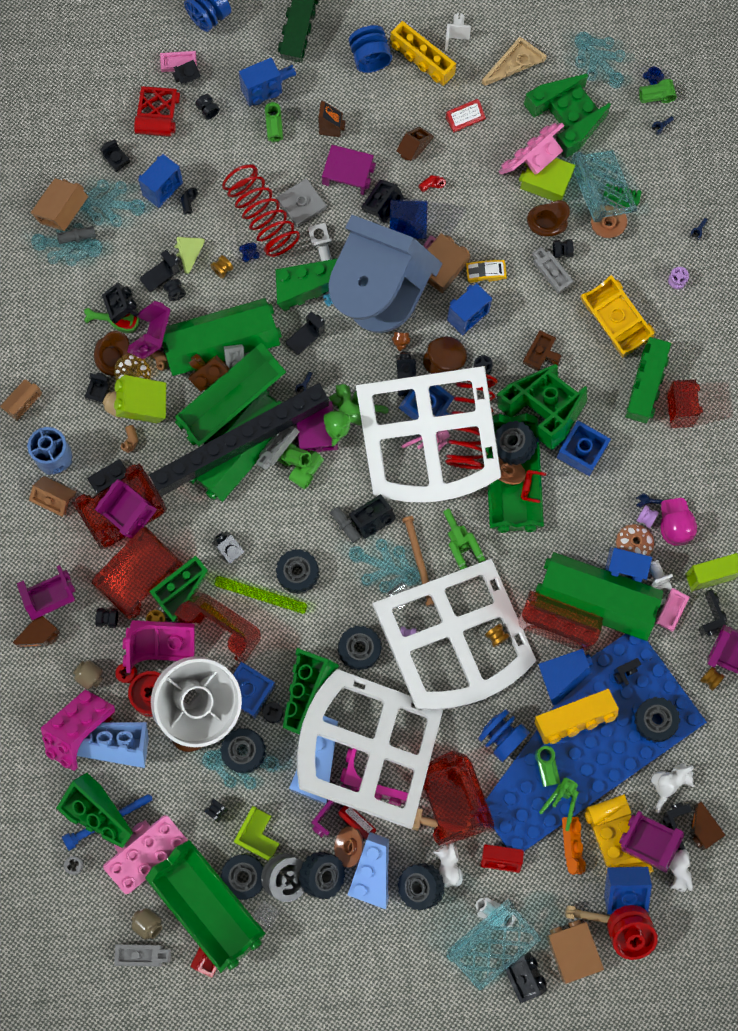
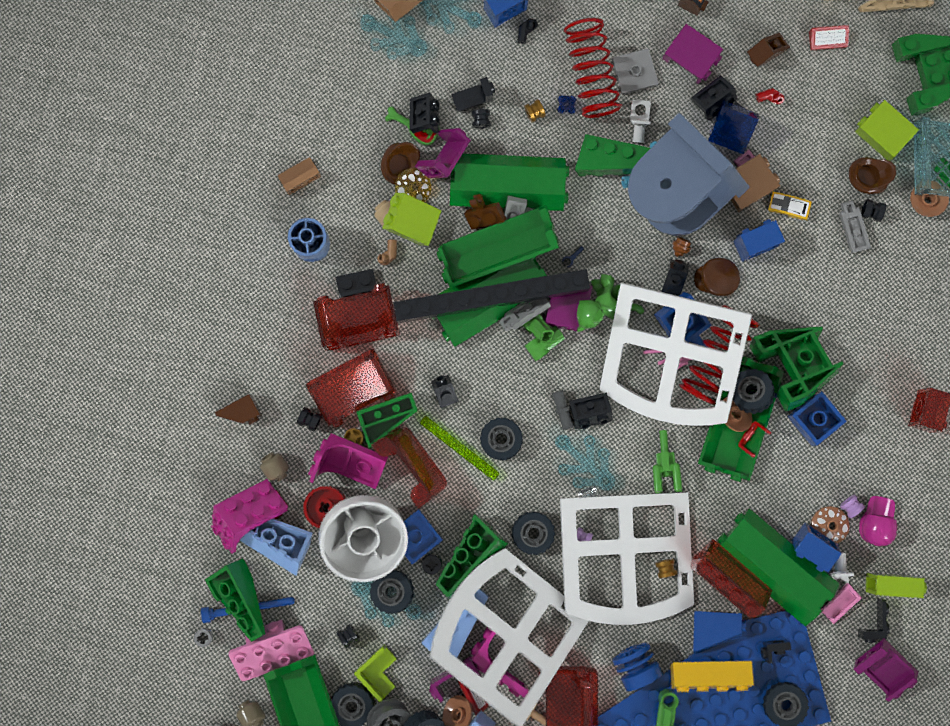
camera: 20 degrees right, 10 degrees up
(48, 594) = (261, 378): magenta panel -> none
(51, 495) = (297, 281): medium nougat panel -> none
(76, 235) = (405, 29): dark grey pin -> none
(97, 388) = (374, 191): black bracket -> none
(125, 508) = (361, 324): magenta panel -> none
(127, 677) = (303, 479): red wheel -> none
(161, 360) = (444, 186): medium nougat arm -> none
(189, 250) = (508, 83): yellowish green piece -> none
(306, 334) = (592, 208): black bracket -> none
(417, 554) = (620, 463): medium nougat bar -> none
(486, 361) = (753, 299): black wheel -> none
(538, 152) = (886, 103): bright pink bracket -> none
(540, 351) = (812, 306): reddish brown plate -> none
(617, 316) = (900, 298): yellow piece -> none
(644, 498) = (856, 489): dark blue hand -> none
(647, 380) = (905, 373): green wedge -> none
(712, 678) = (852, 682): pearl gold wheel -> none

